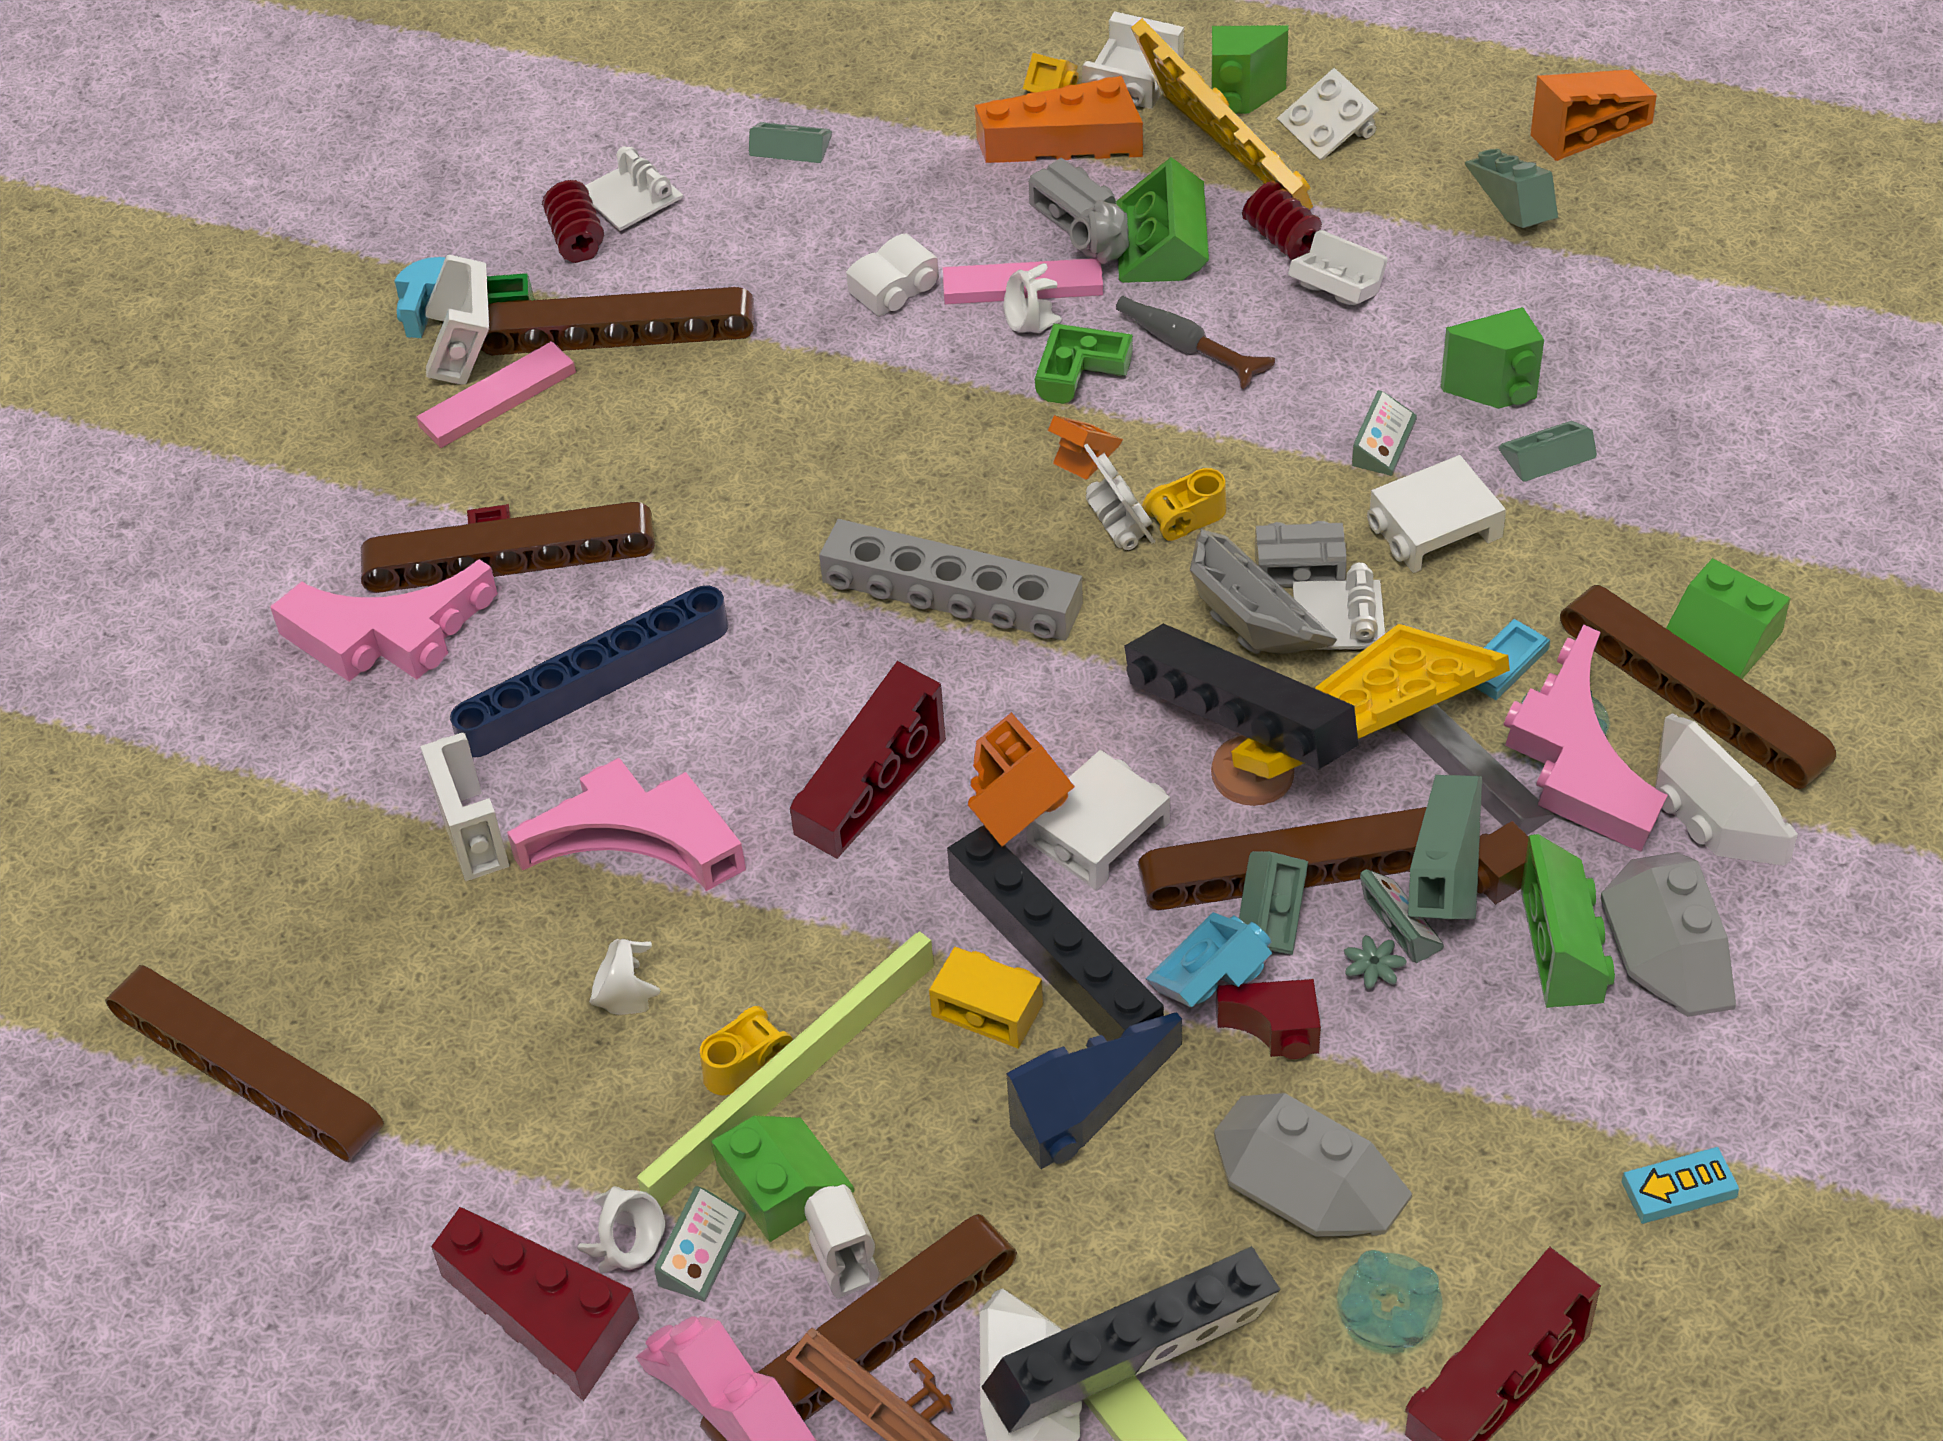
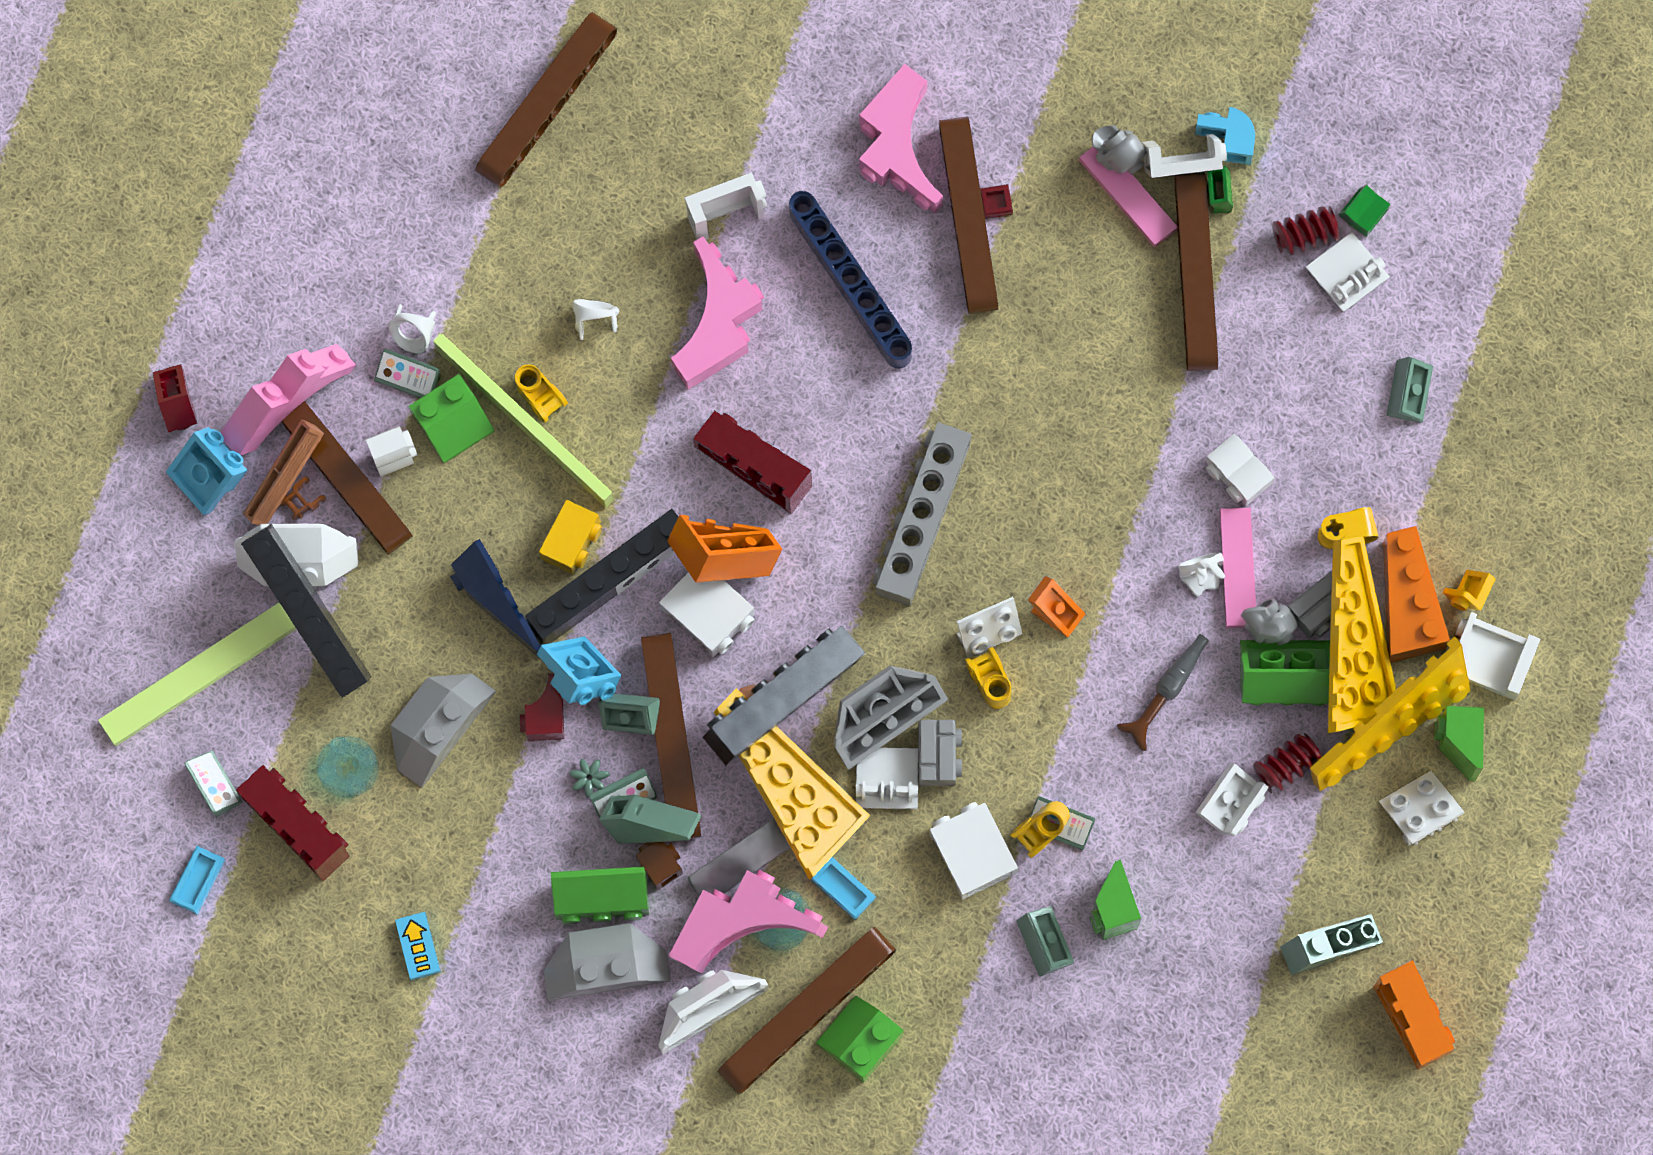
camera: 90 degrees right, 25 degrees up
(438, 380) = (1118, 149): none -> light grey head
(539, 1297) = (370, 285): dark red wedge -> none
(545, 171) = (1364, 210): none -> green piece
(972, 181) = (1348, 525): none -> yellow piece
(1079, 349) = (1152, 605): bright green brick -> none
(1125, 147) = (1358, 648): none -> yellow wing
(1396, 435) = (1038, 831): none -> yellow piece

